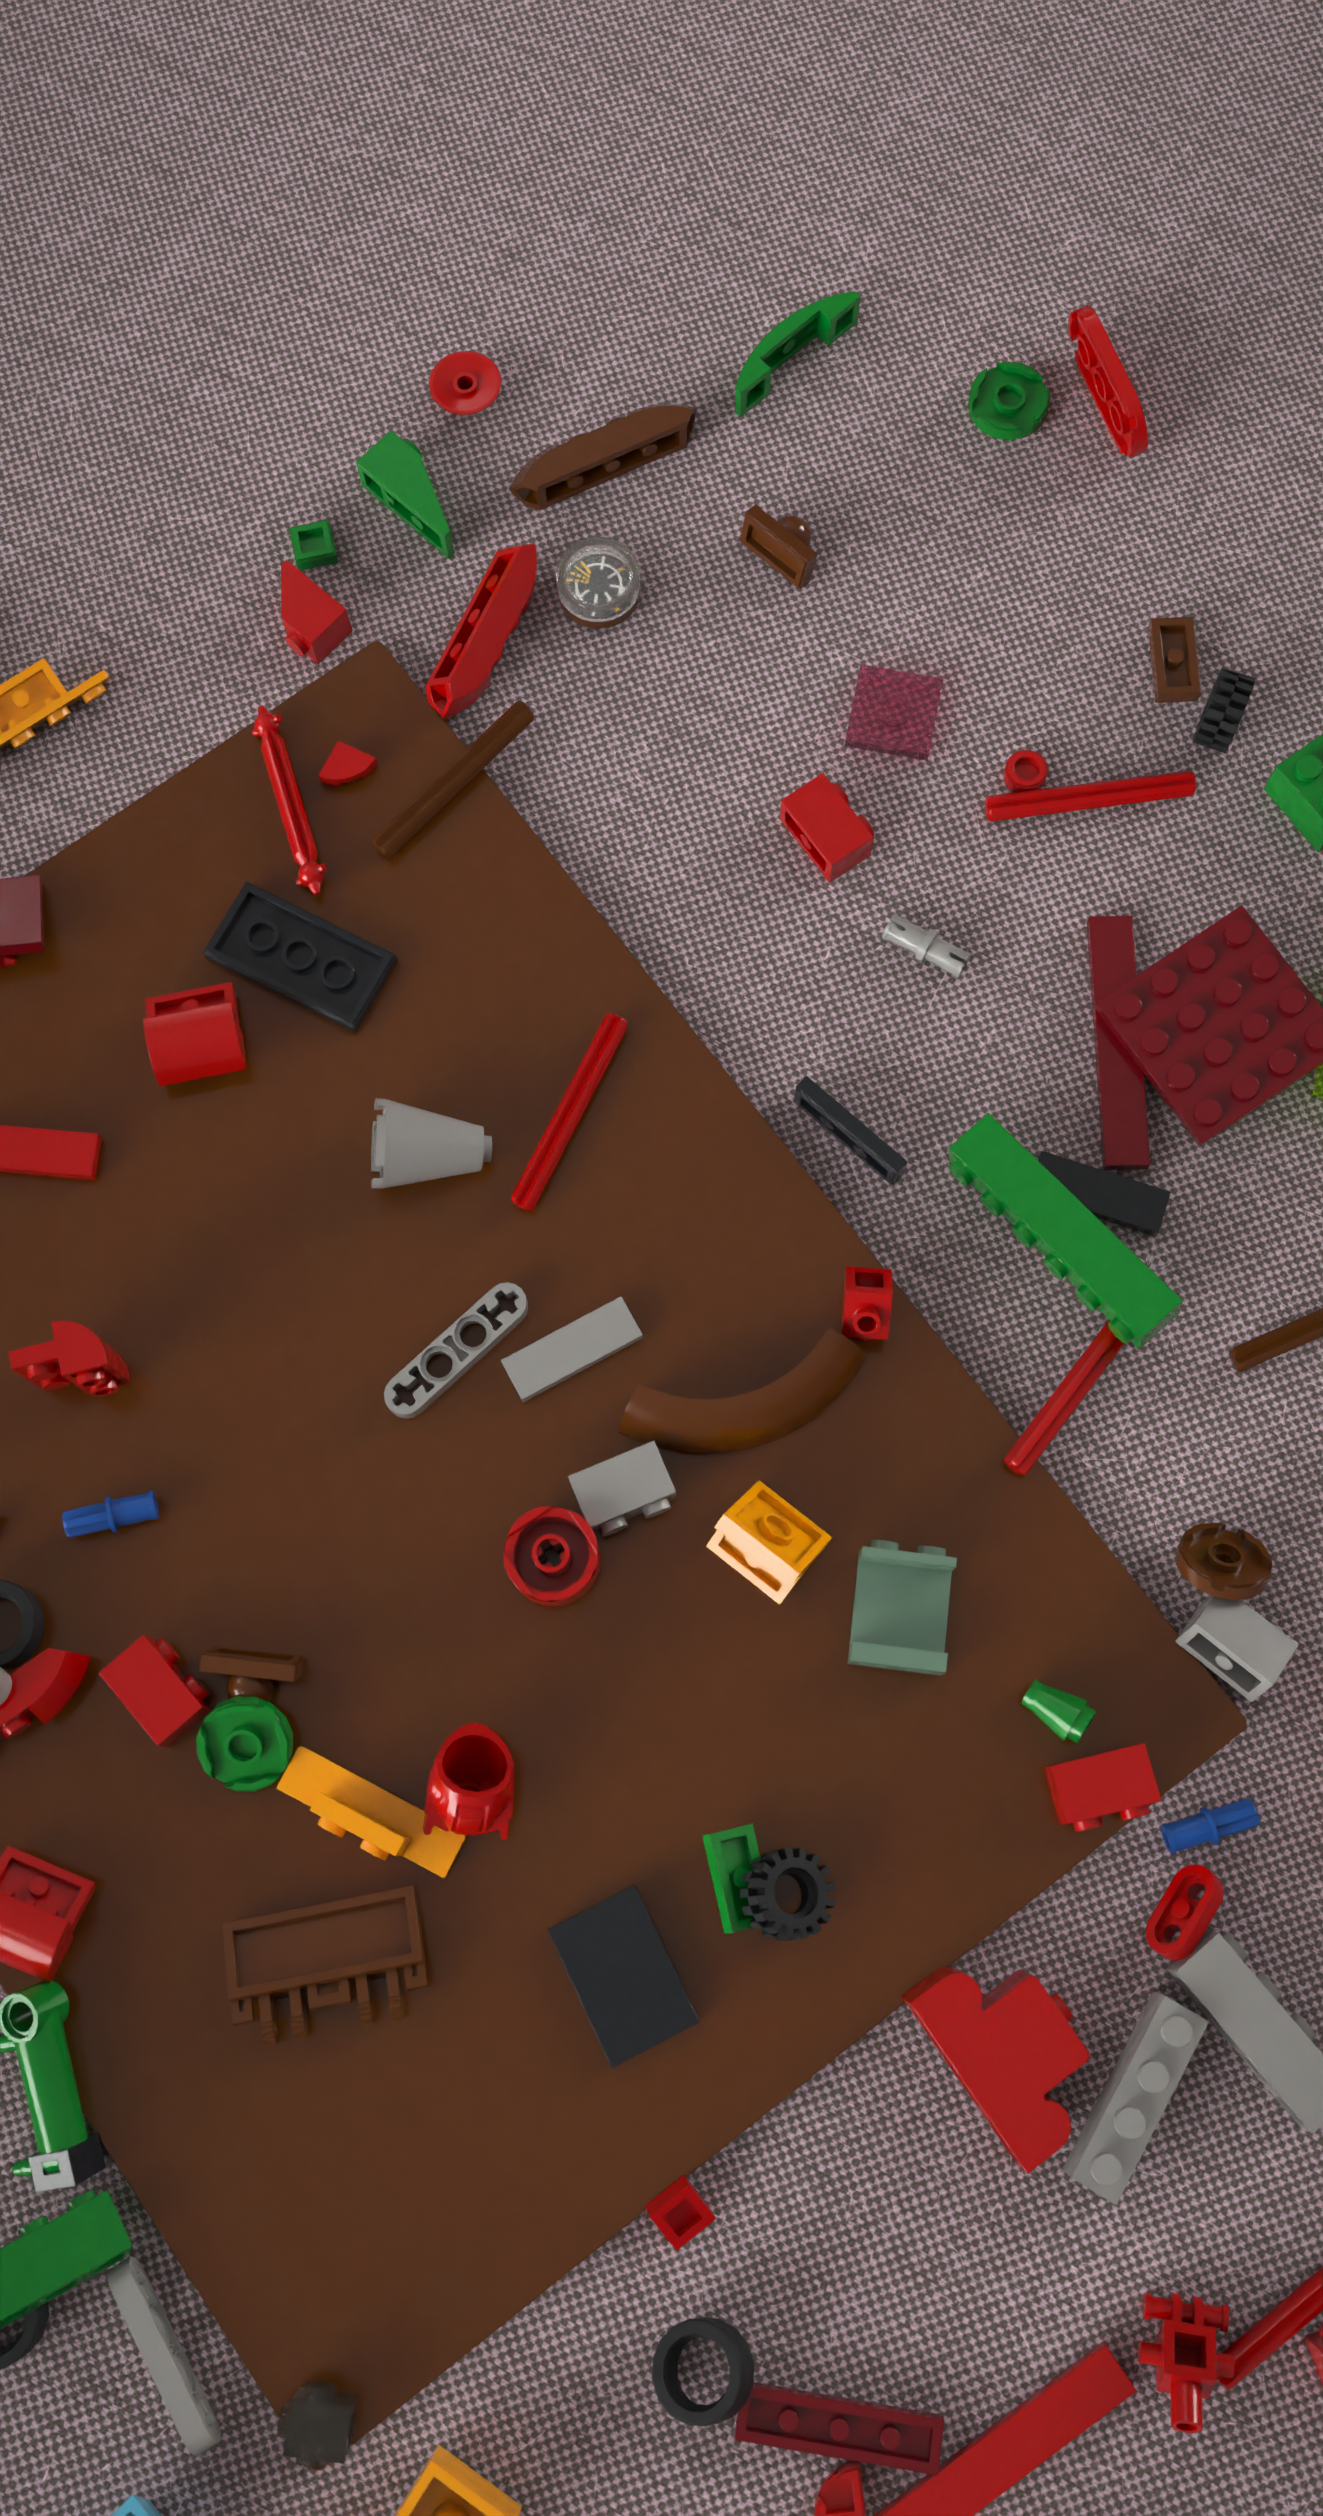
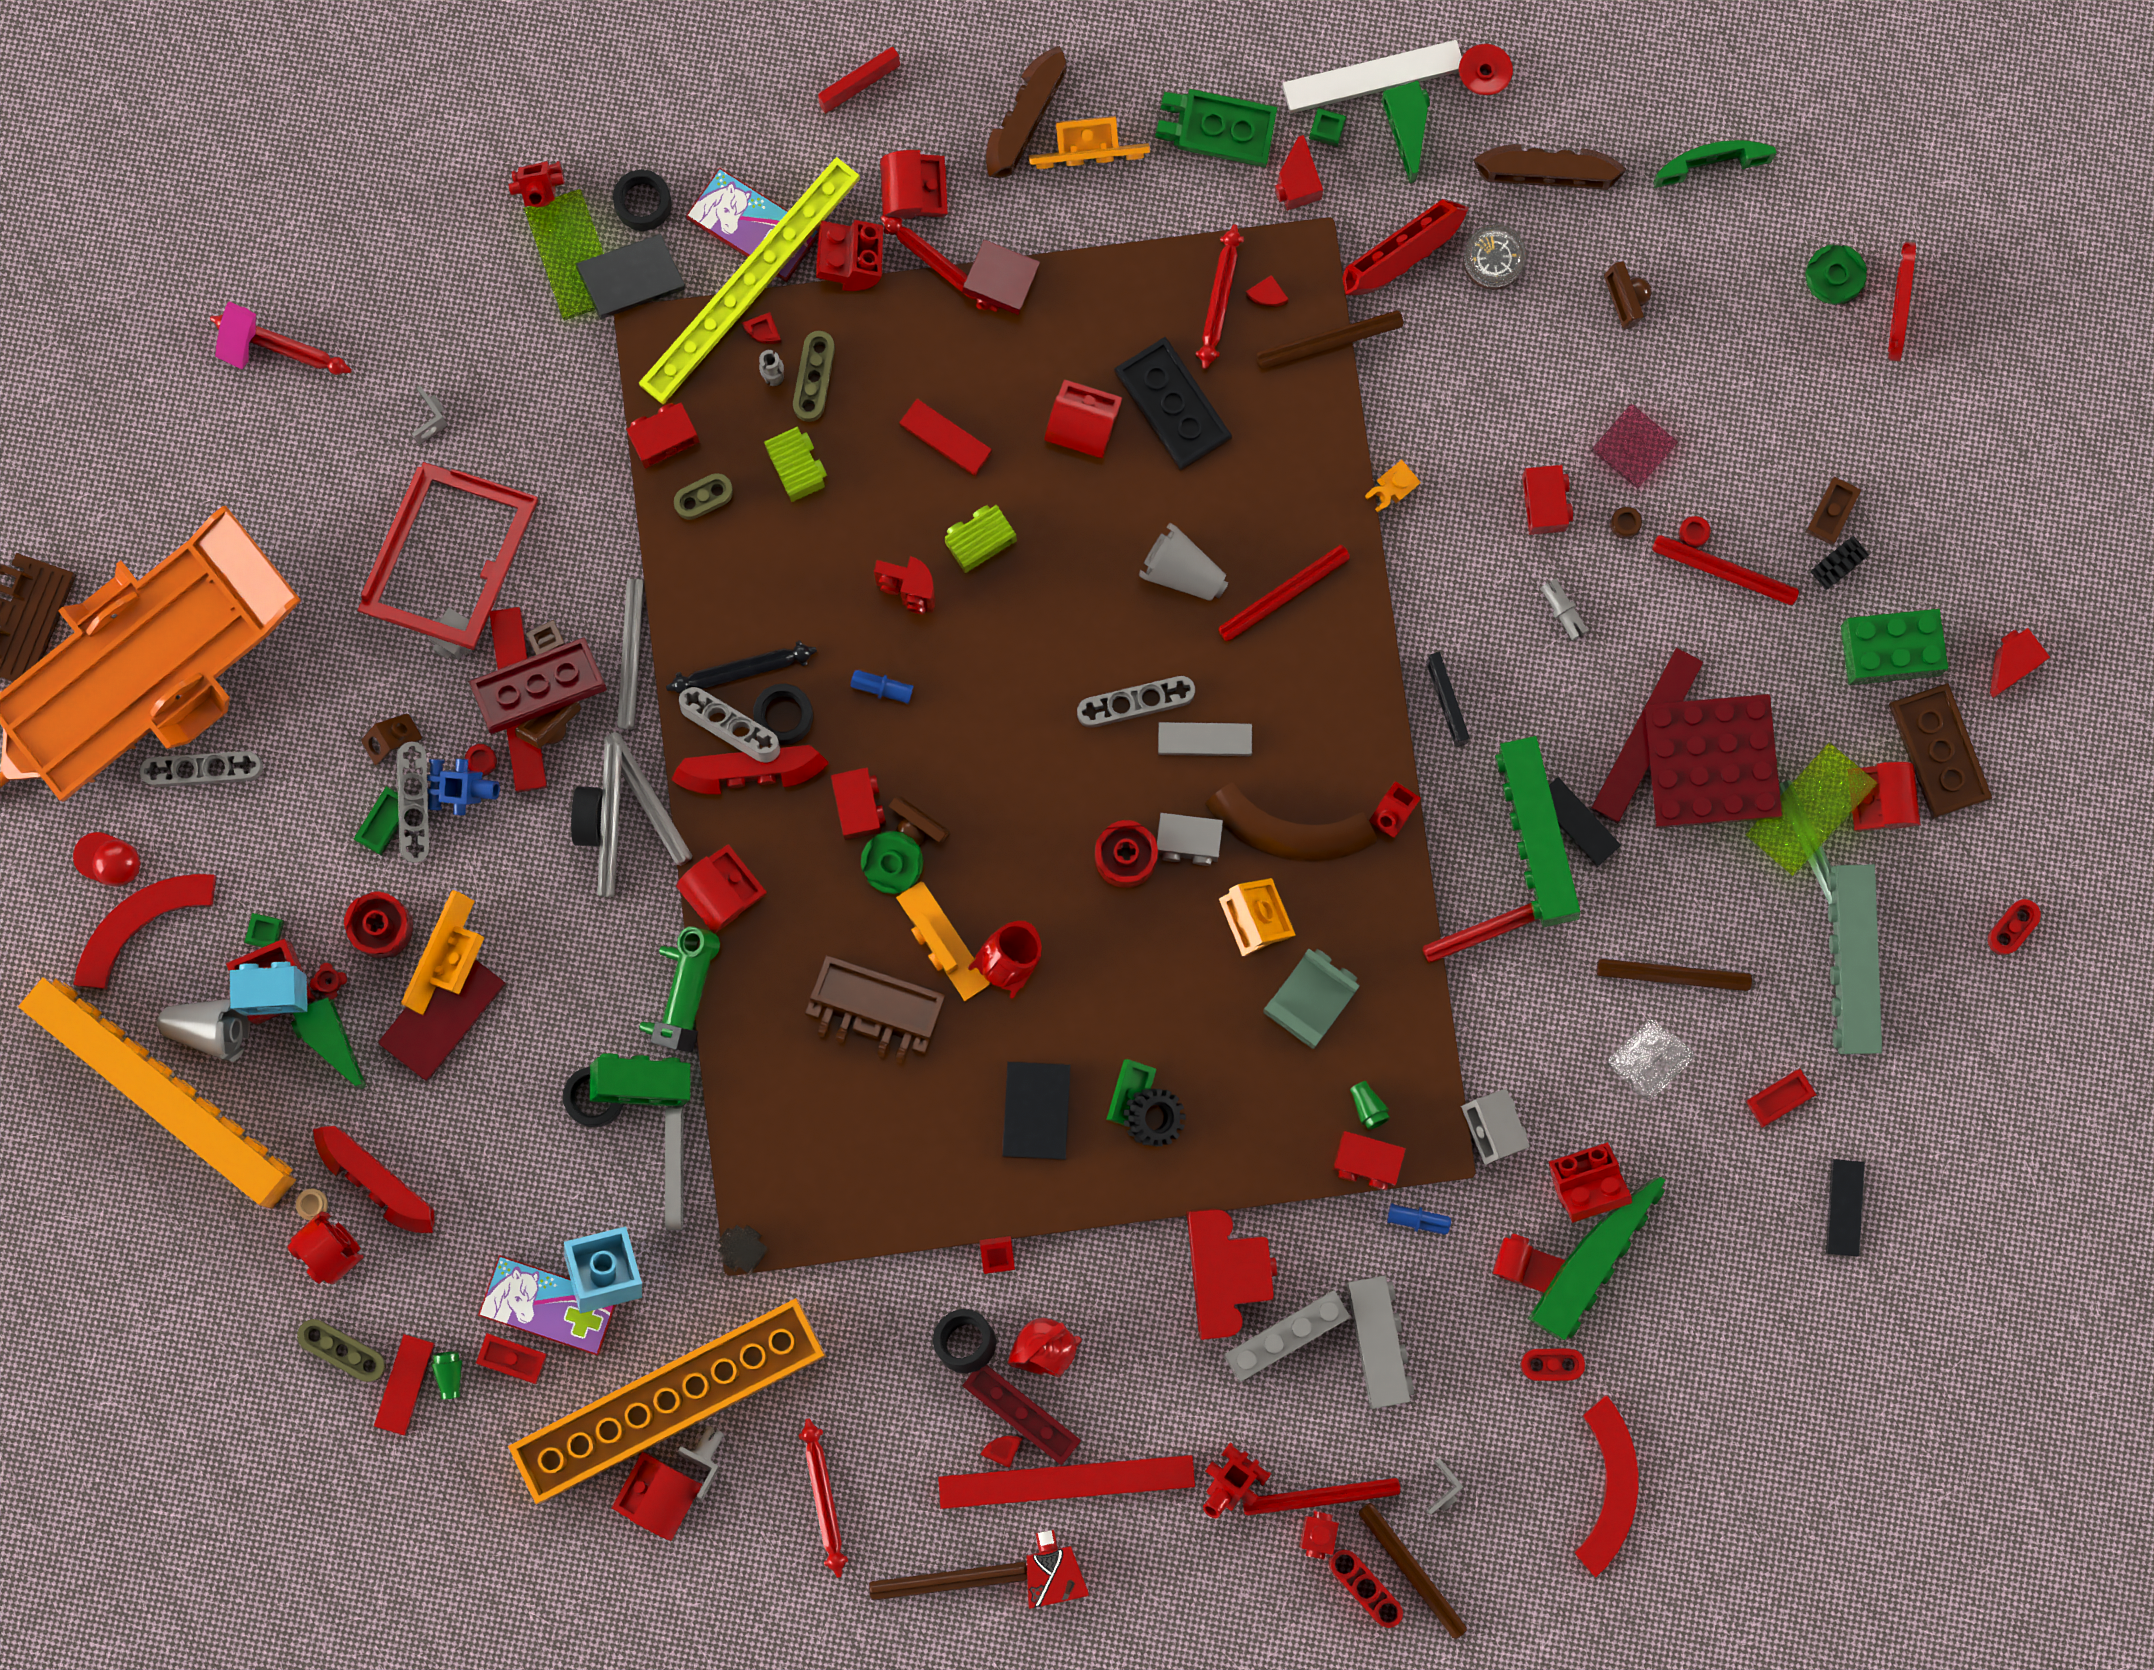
camera: 25 degrees right, 5 degrees up
(140, 1252) = (980, 537): none -> lime brick
(178, 609) = (1219, 126): none -> green tile
(332, 463) = (1372, 76): none -> white tile
(631, 909) = (1394, 485): none -> light orange plate
(819, 2313) = (1044, 1348): none -> red helmet
(937, 805) = (1626, 522): none -> reddish brown tile
(1182, 1912) = (1374, 1256): red plate -> none
(1223, 1561) = (1516, 1076): reddish brown plate -> none

